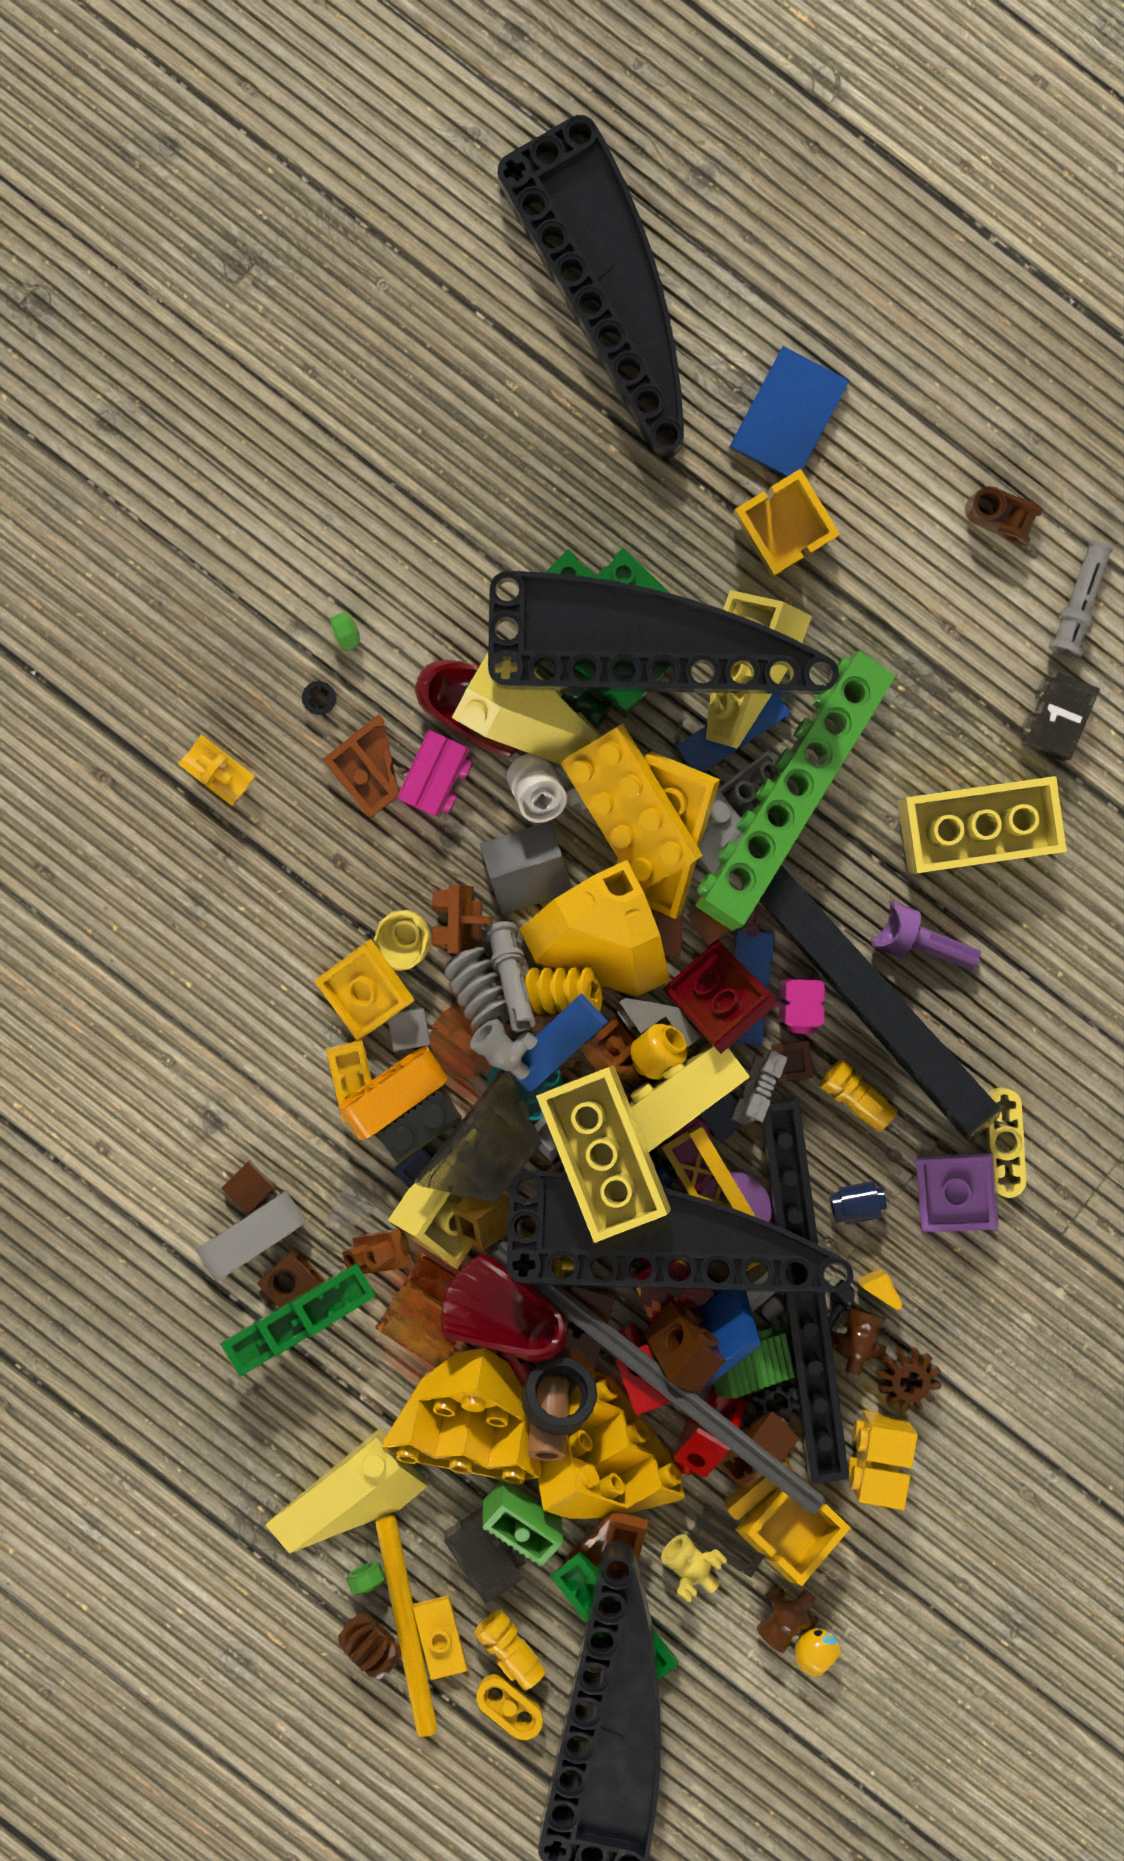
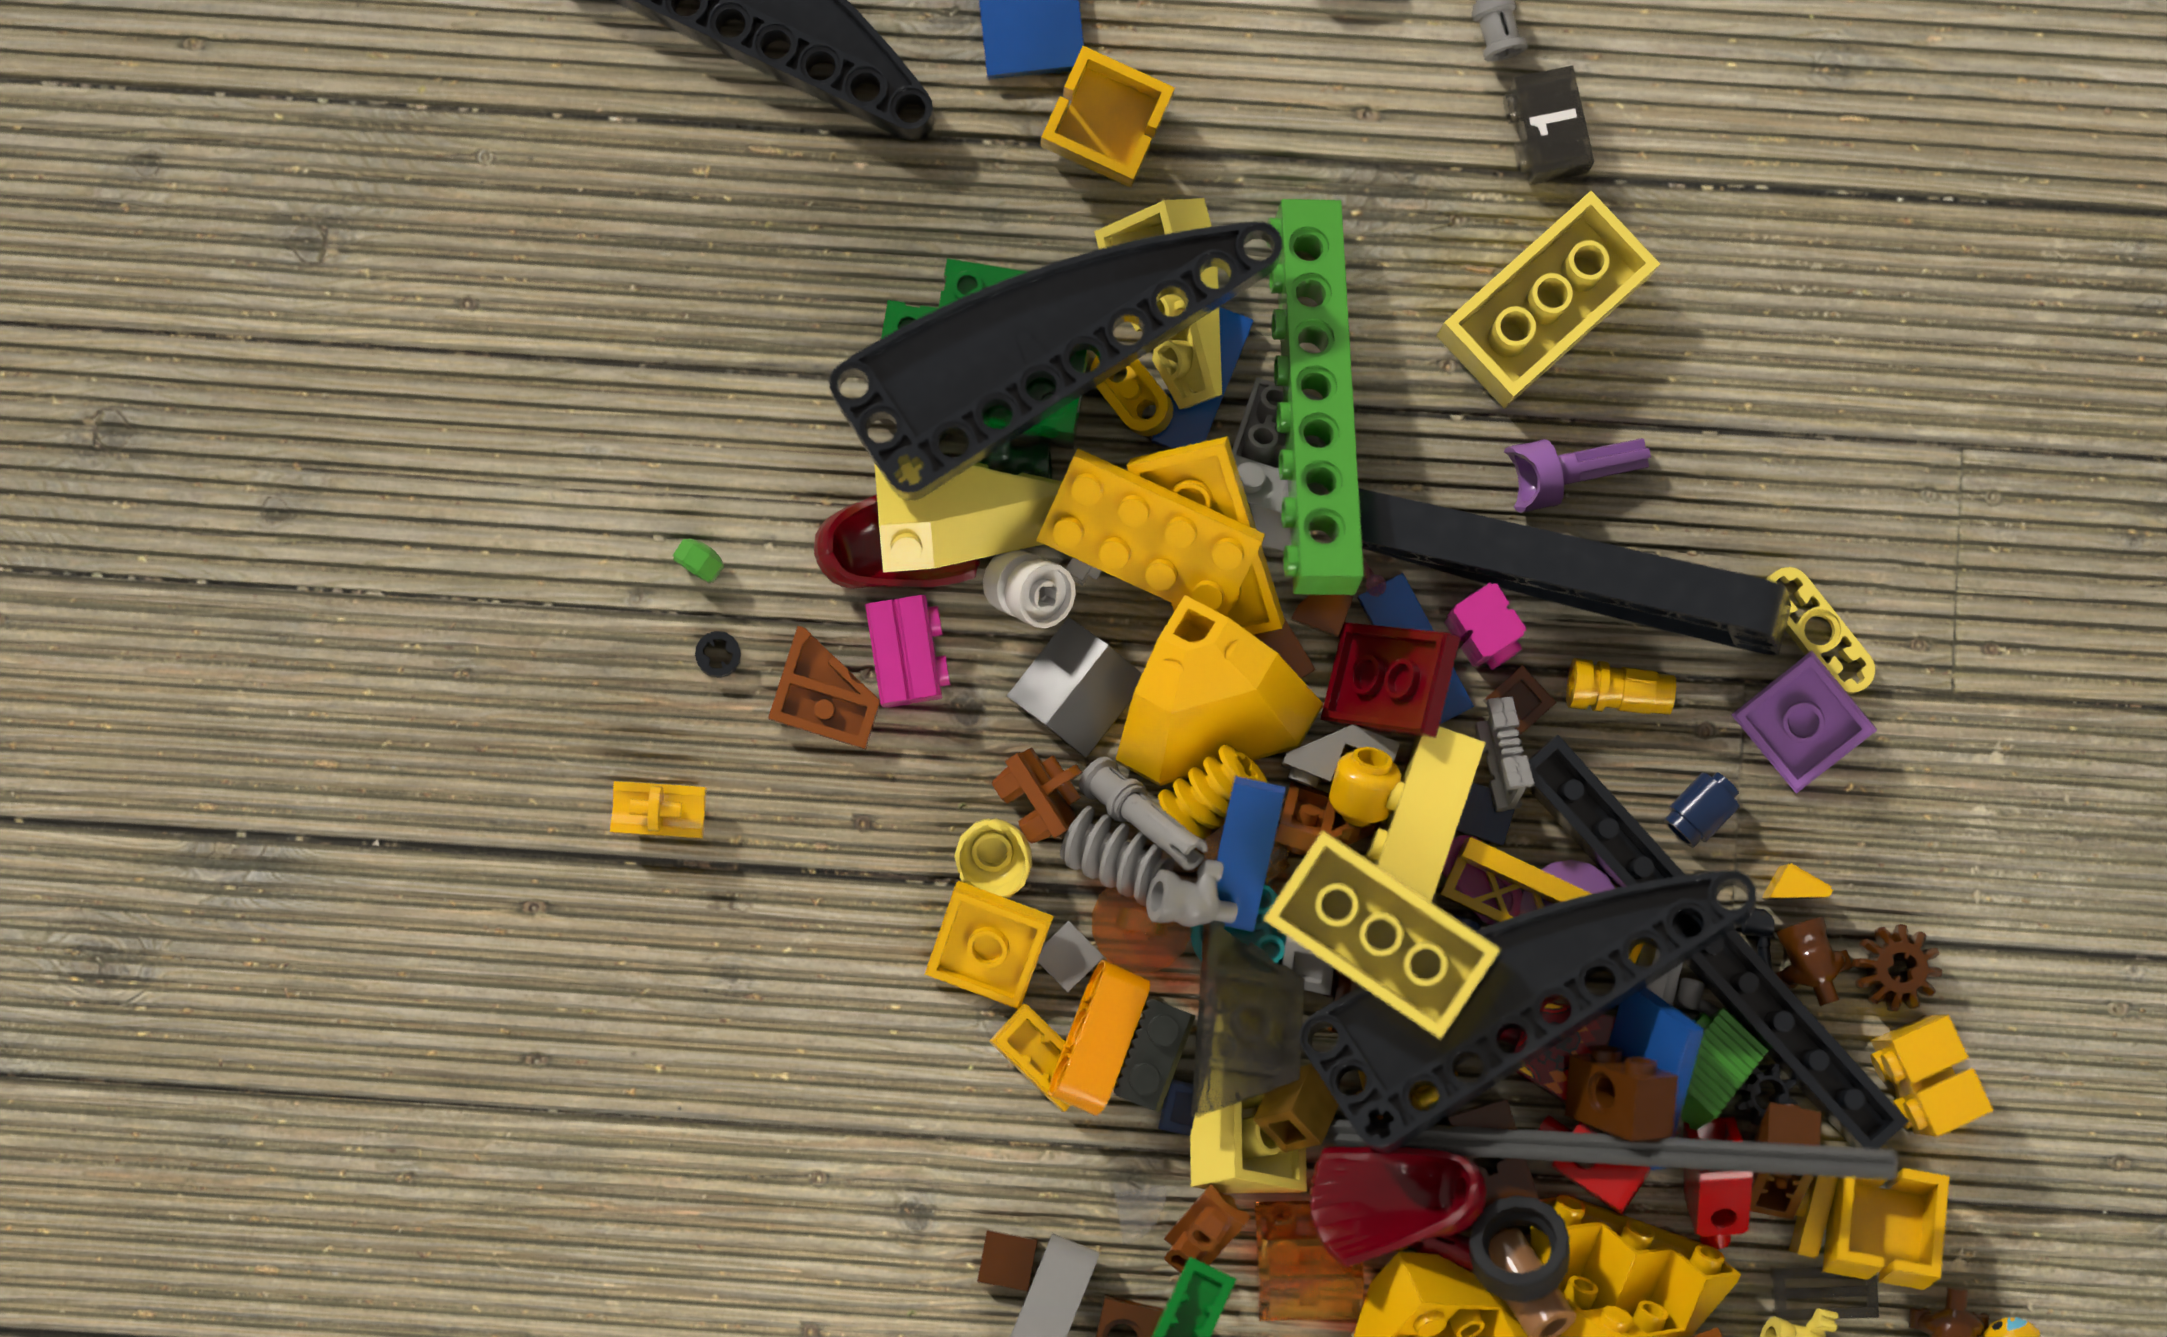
camera: 30 degrees left, 5 degrees down
(684, 710) = (1134, 395): none -> yellow plate

